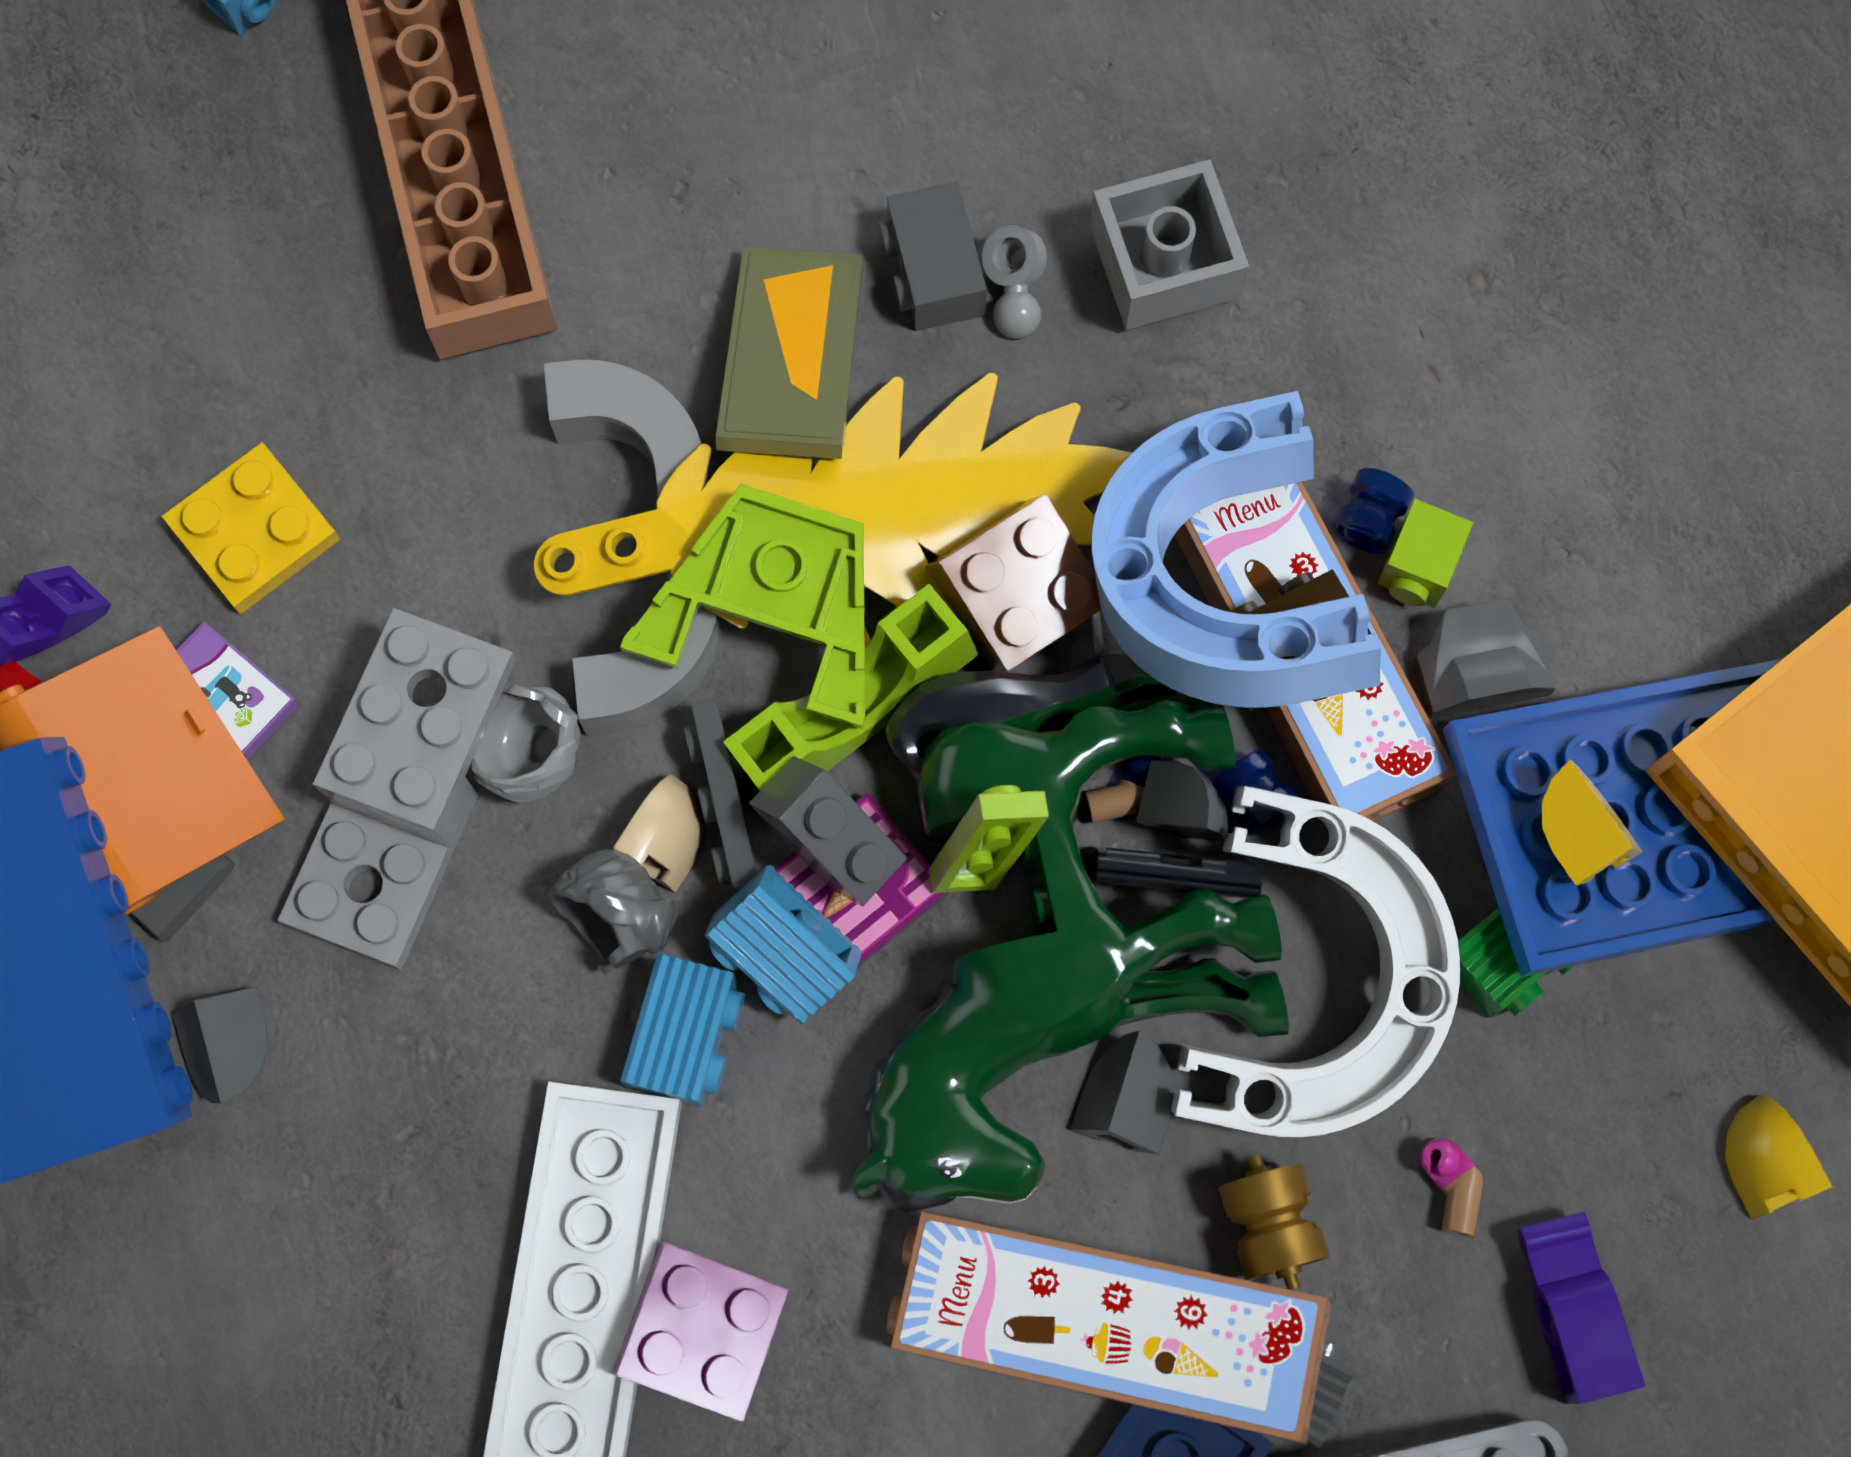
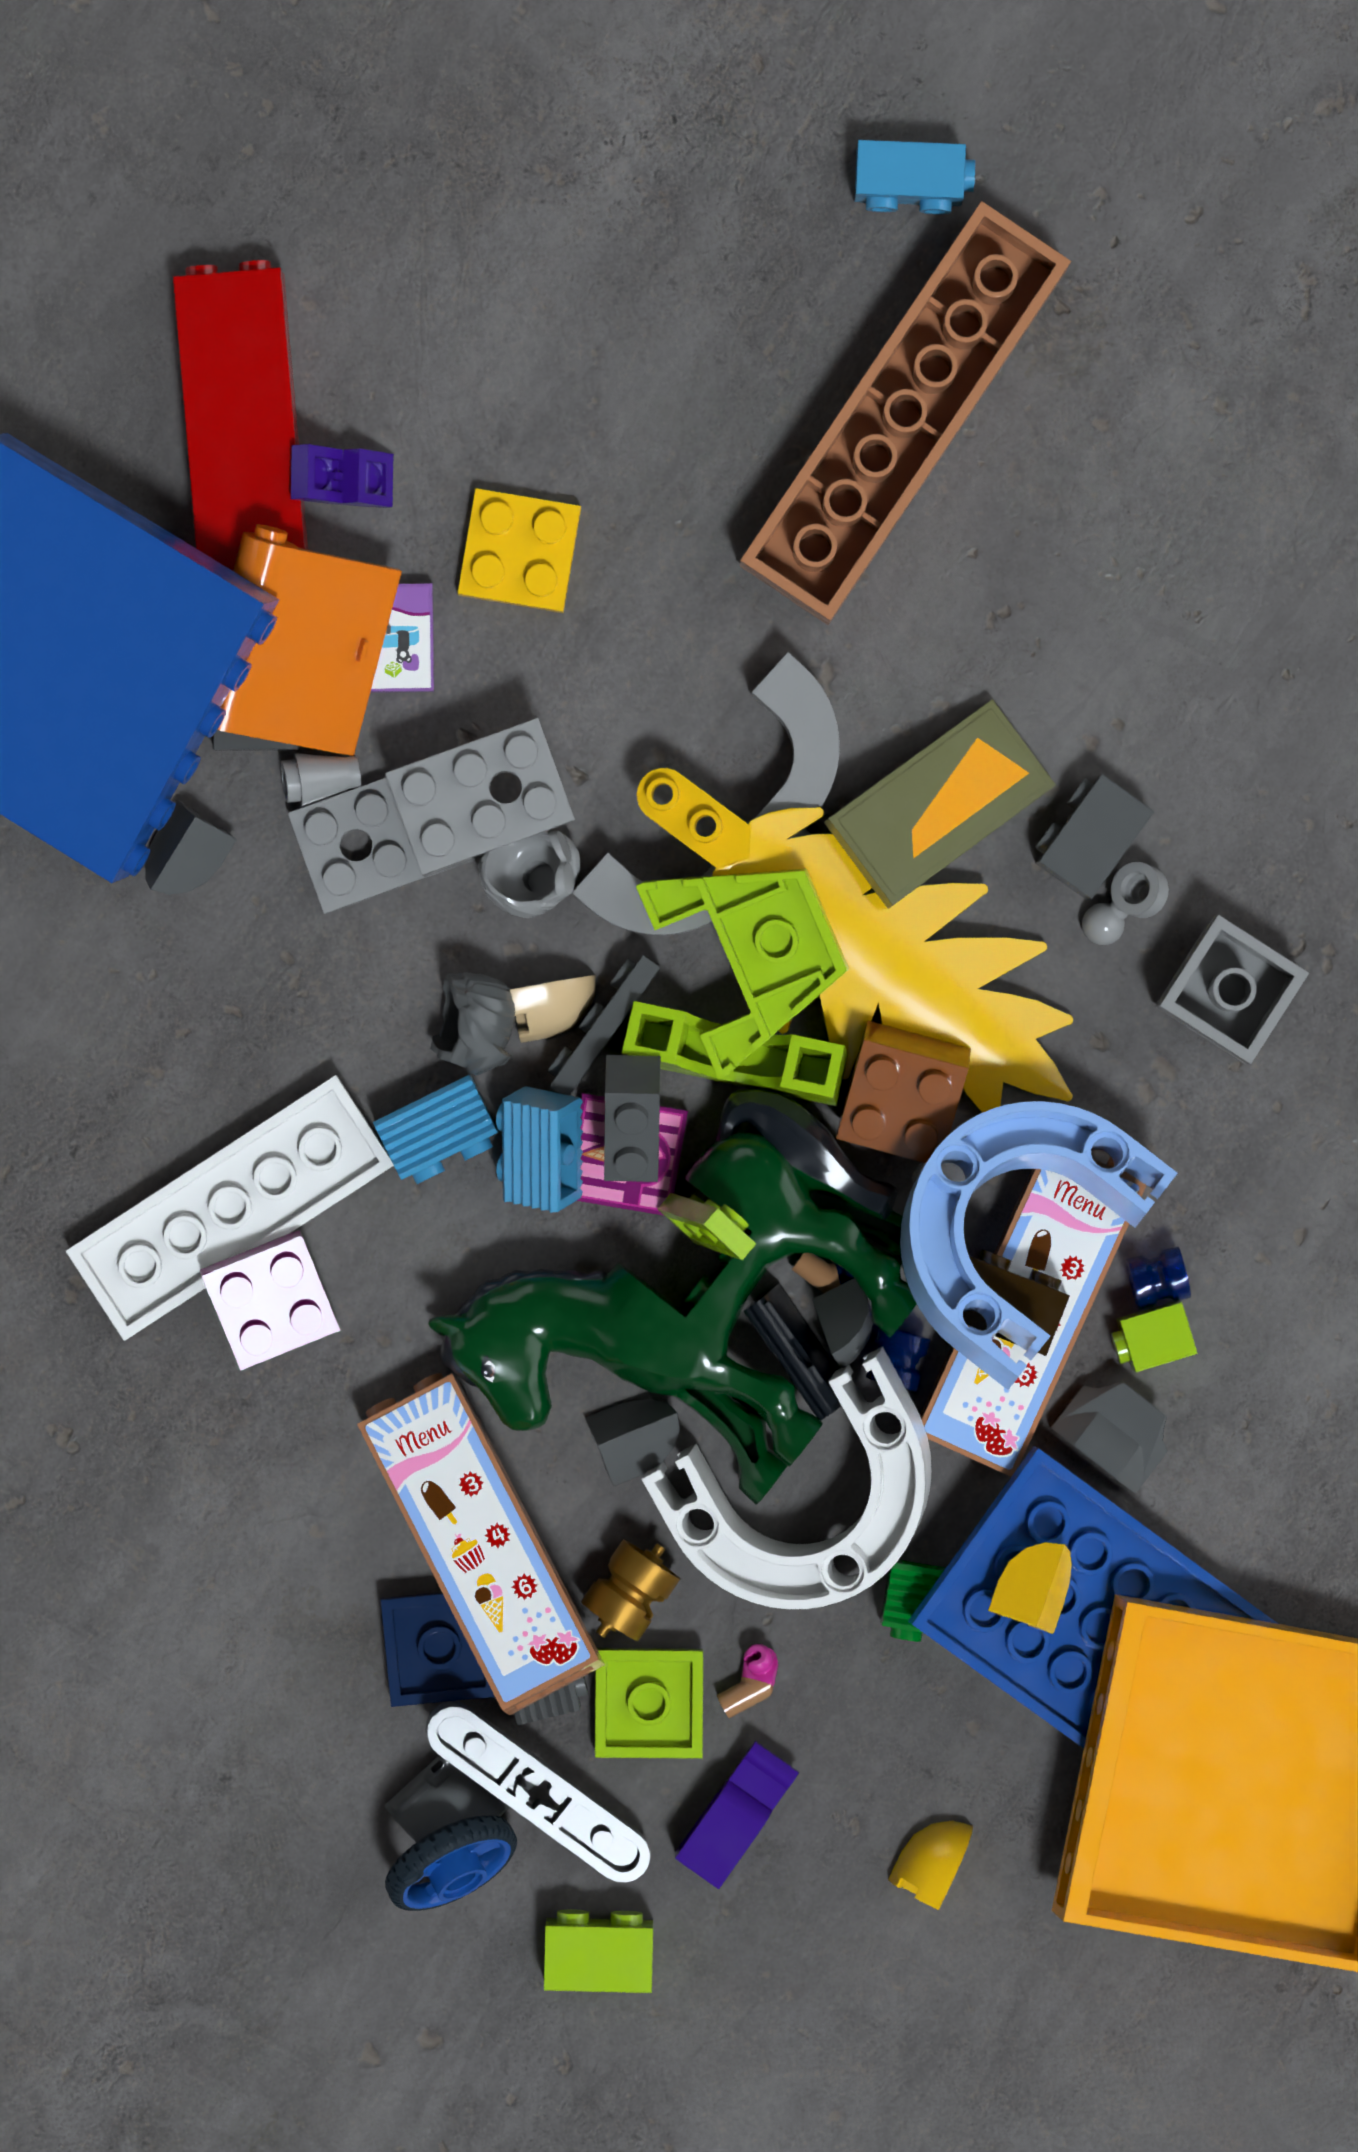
camera: 50 degrees right, 15 degrees up
(271, 866) = (318, 776): none -> light grey cone
(1401, 1300) = (649, 1703): none -> lime plate

